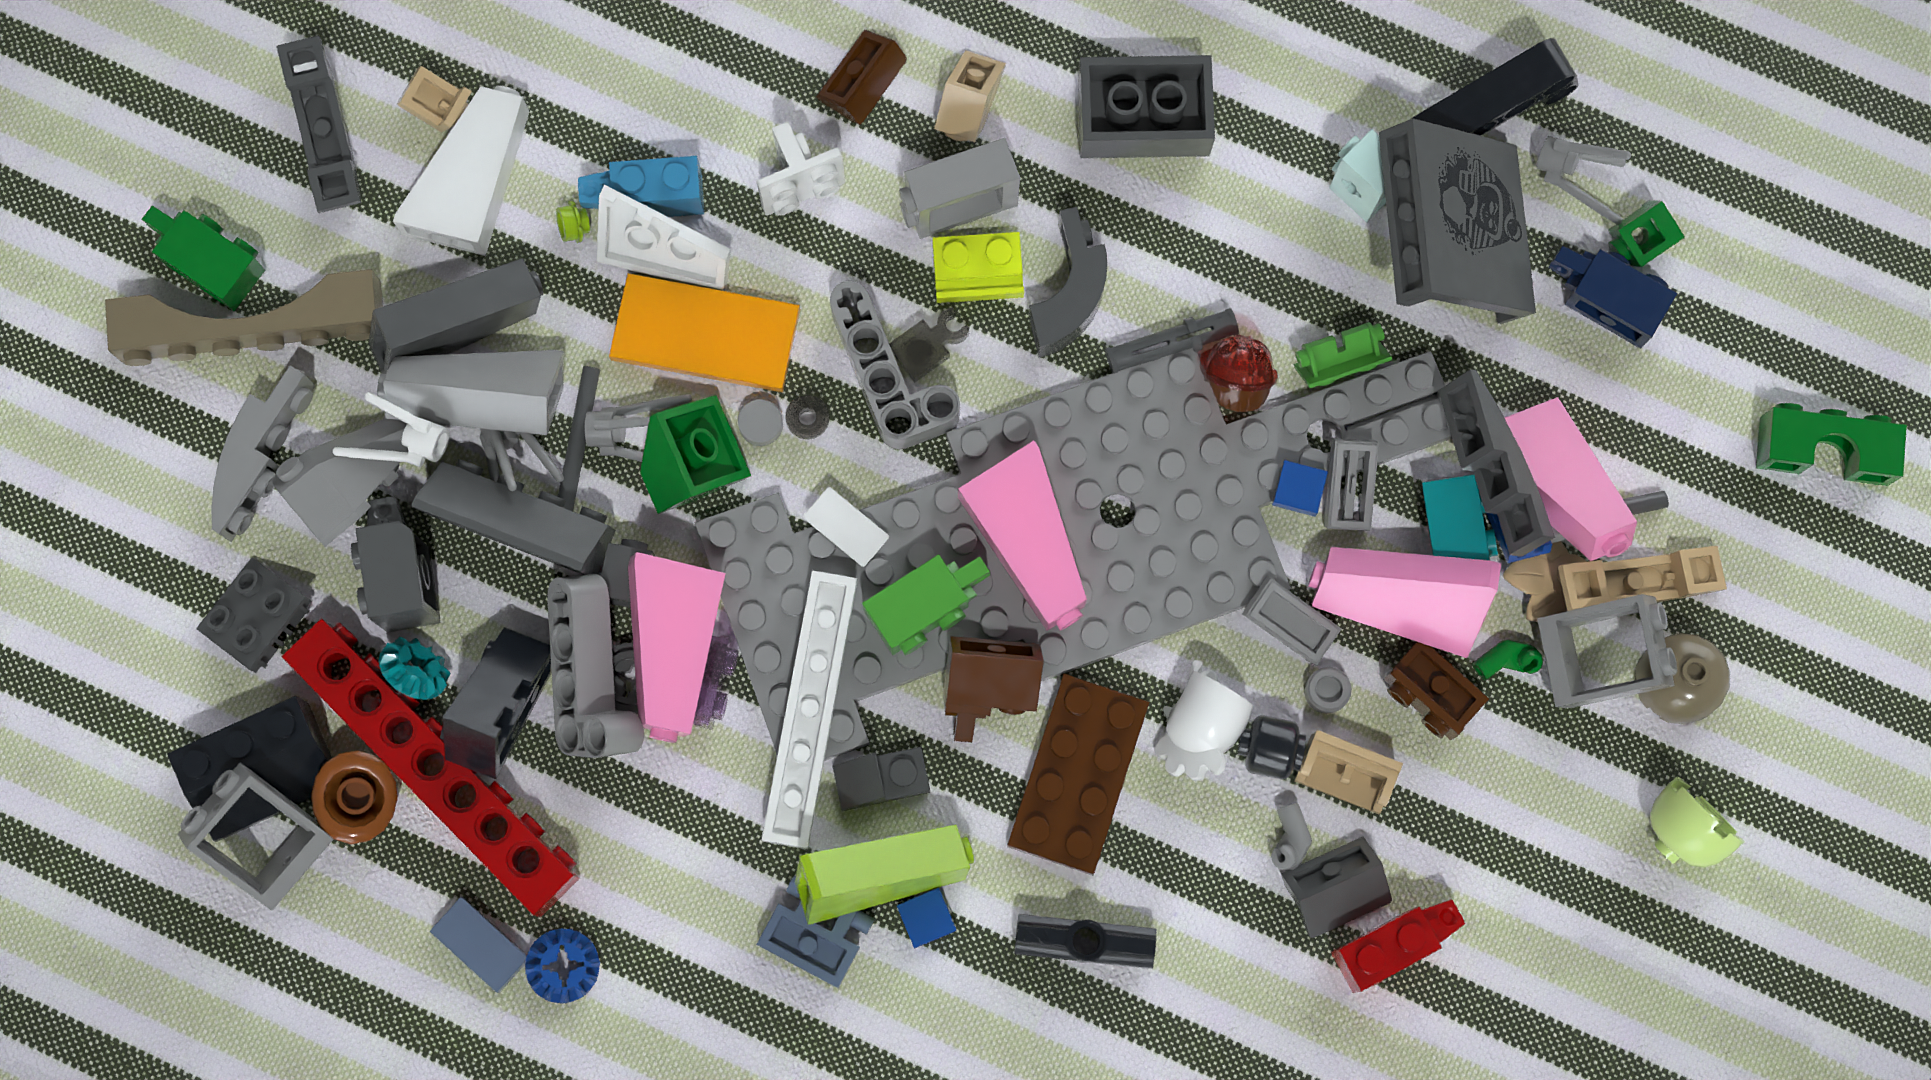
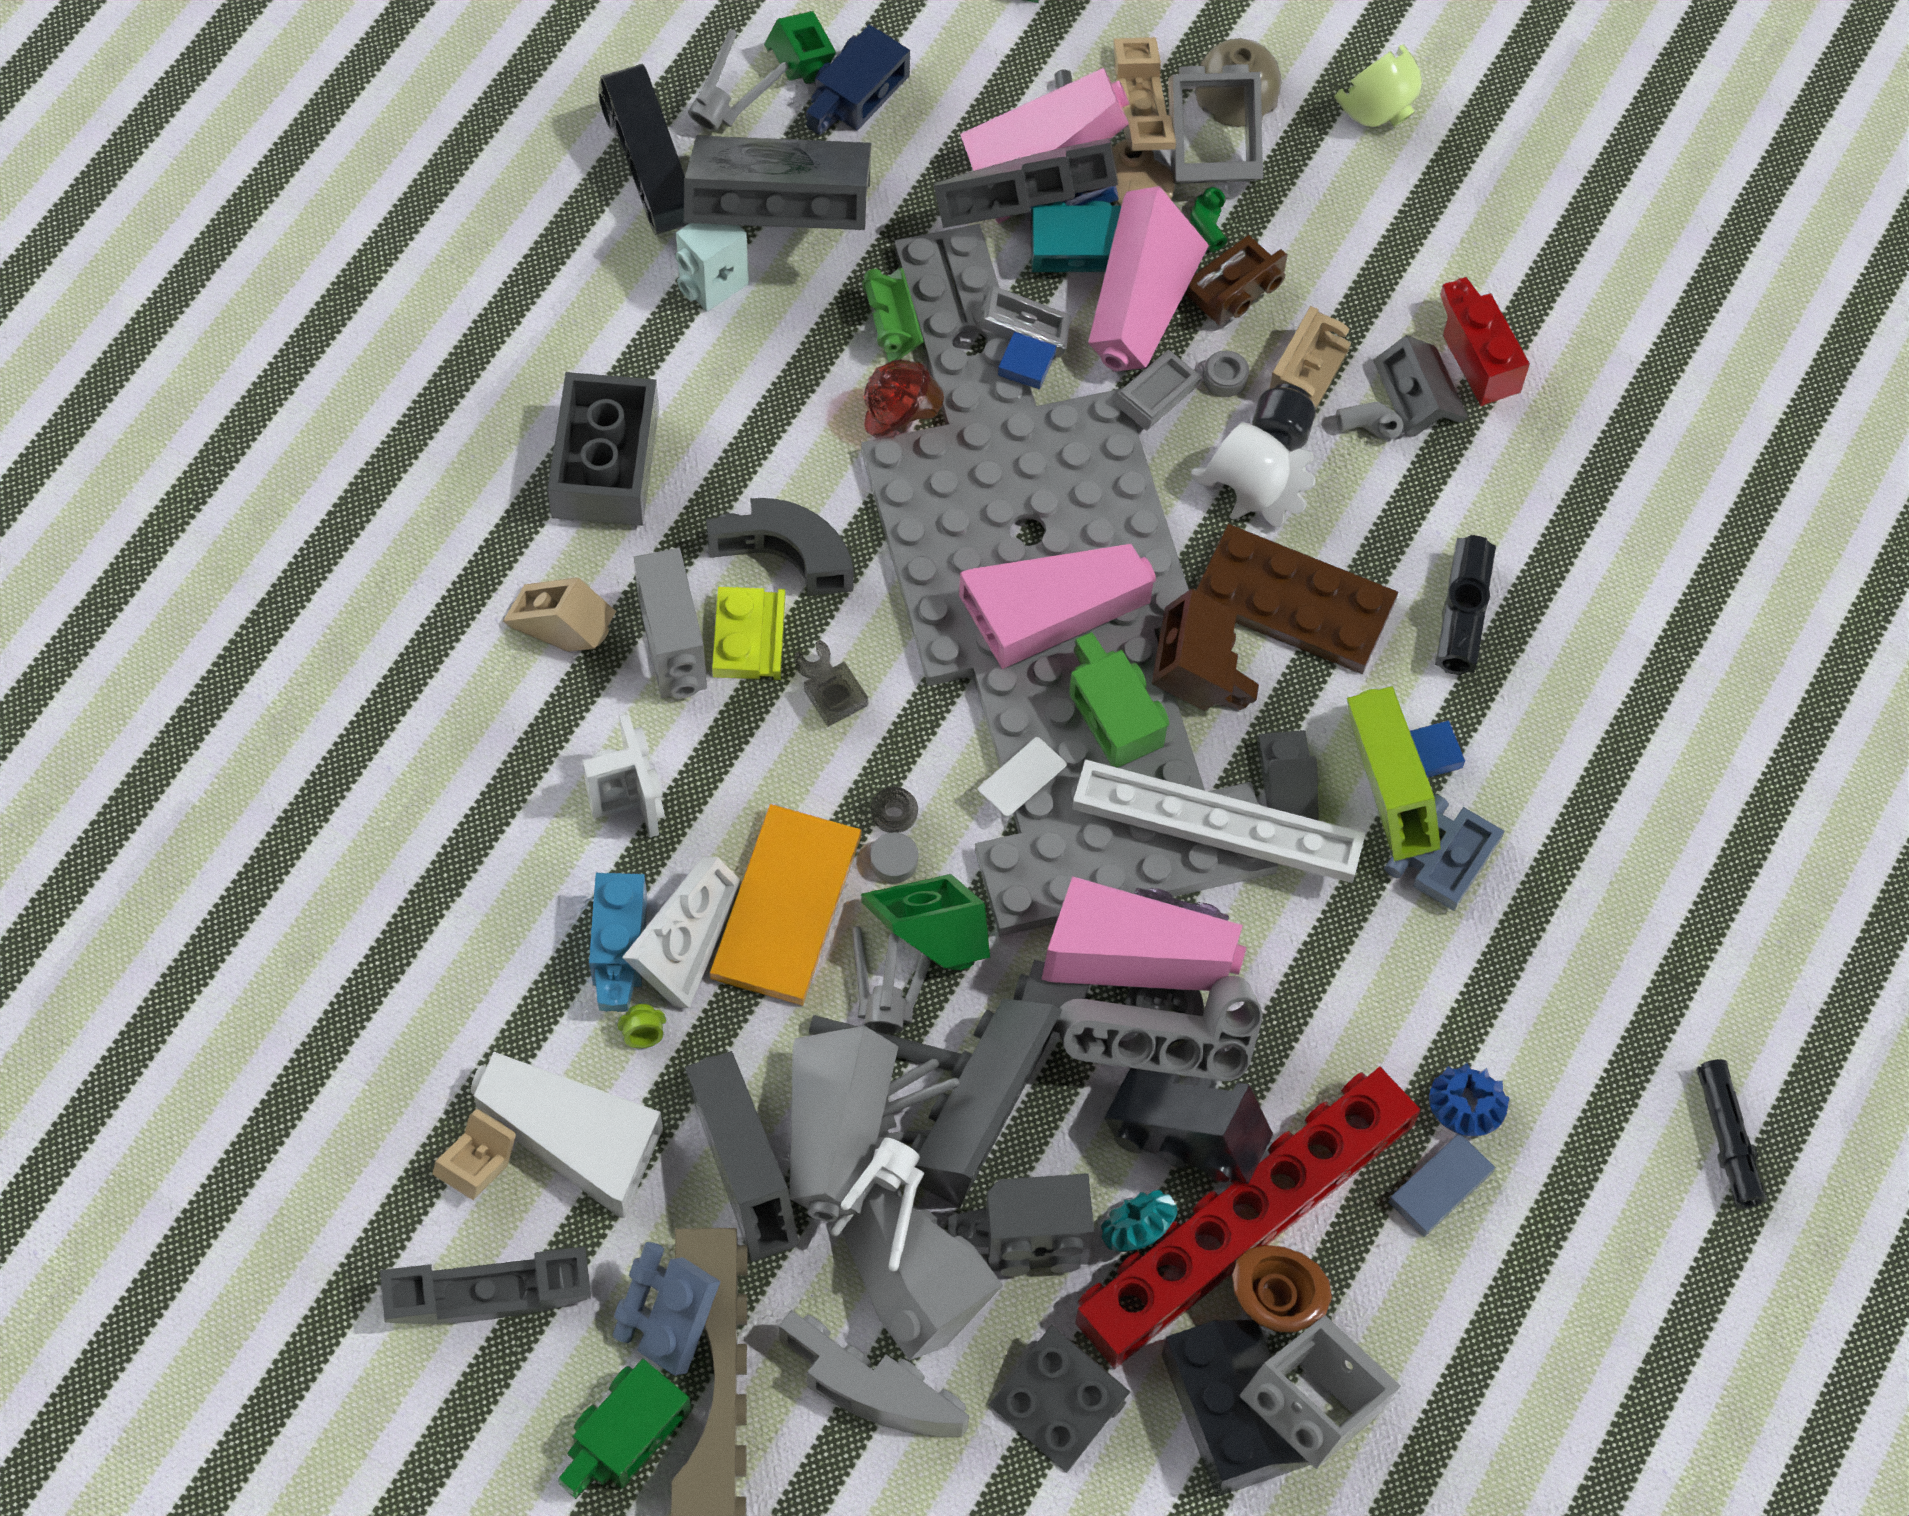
camera: 85 degrees left, 15 degrees down
(304, 273) = (678, 1312): none -> sand blue plate
(863, 76) = (514, 723): reddish brown slope -> none
(883, 364) = (846, 722): light grey beam -> none
(1221, 326) = (850, 445): dark grey pin -> none

